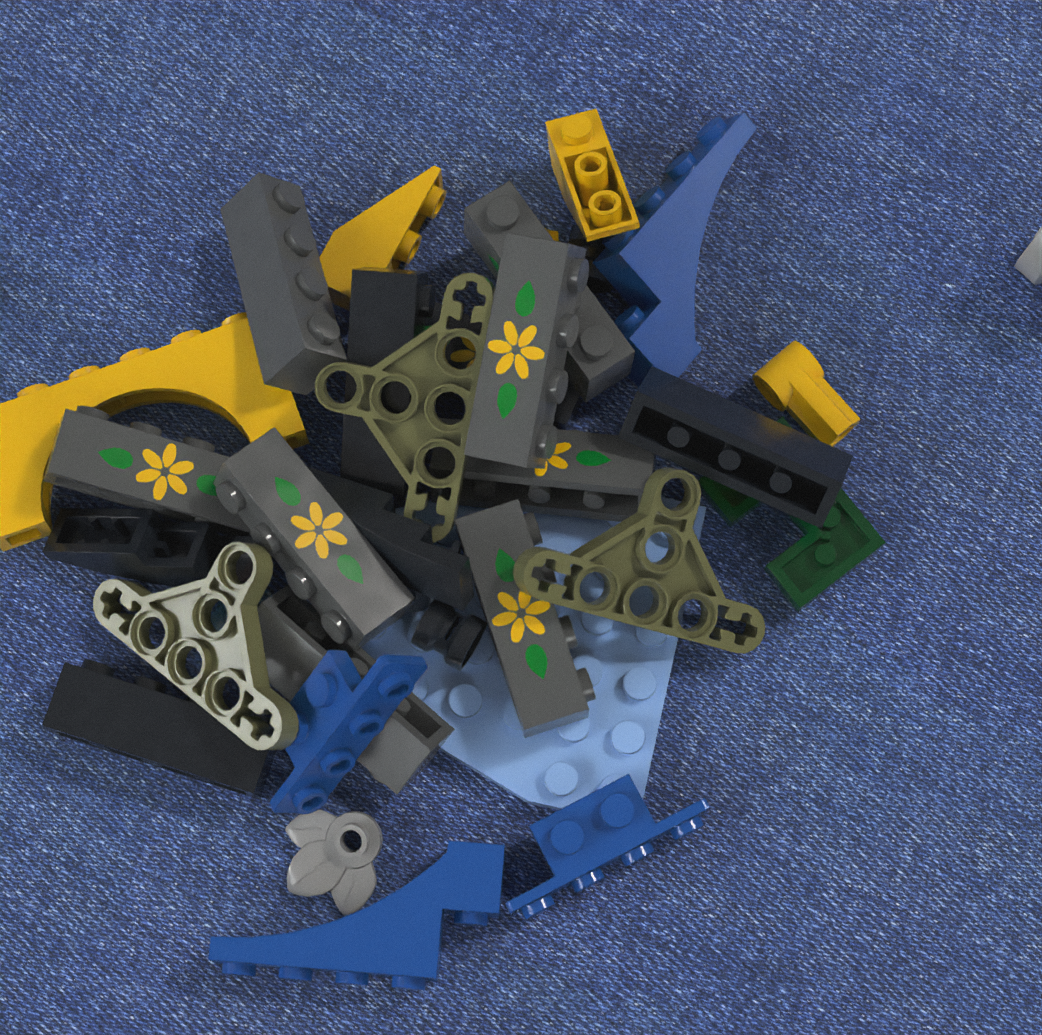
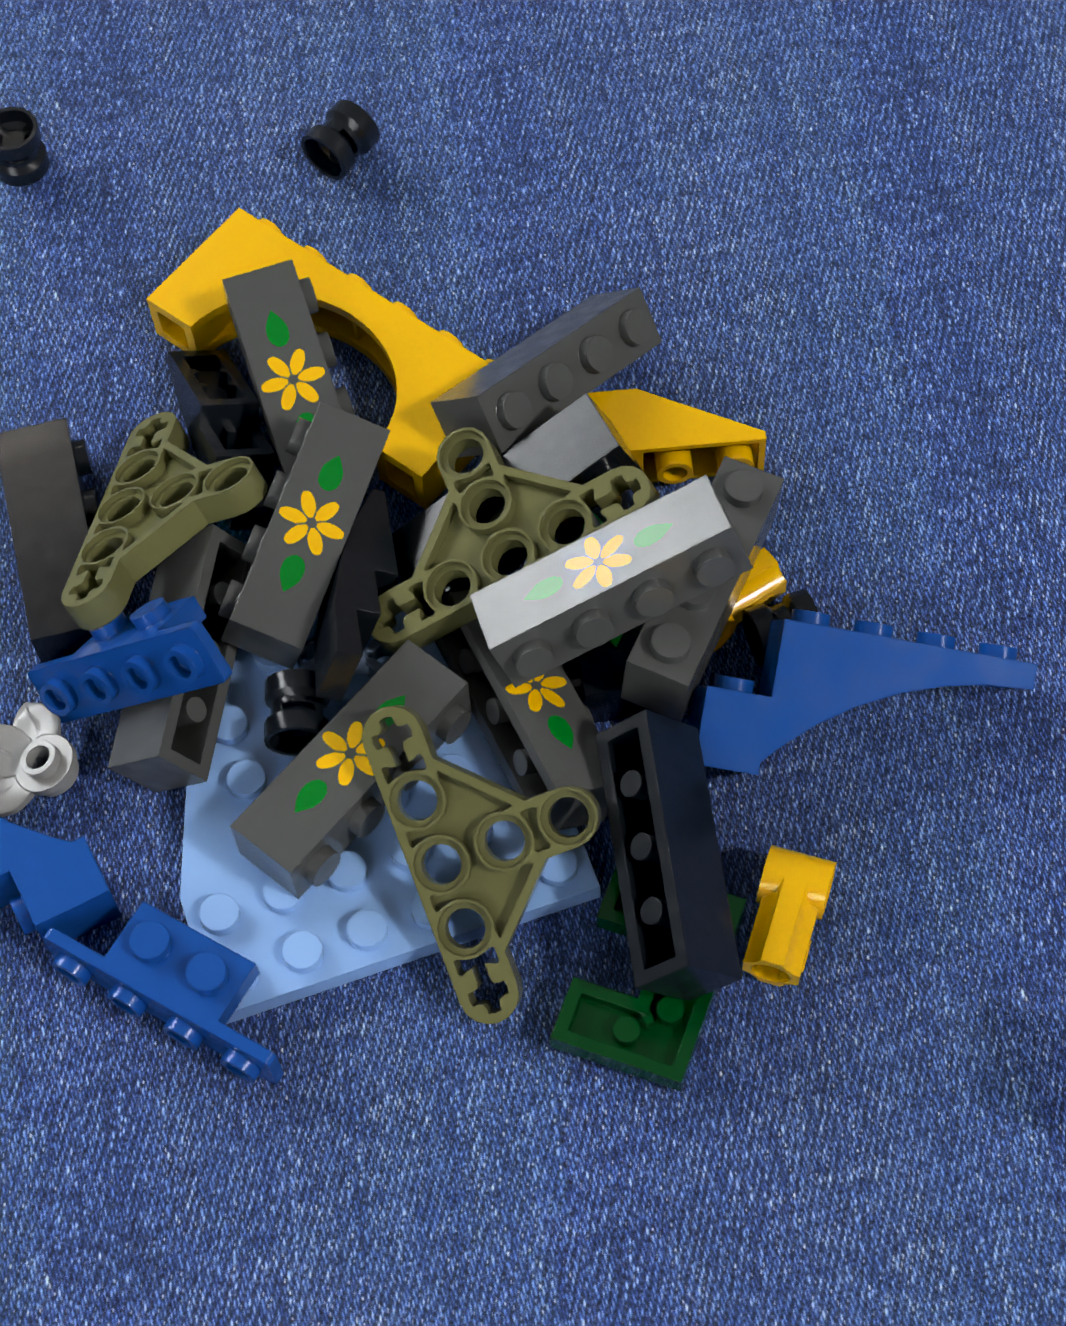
camera: 60 degrees right, 15 degrees down
(589, 176) = (858, 561): yellow slope -> none

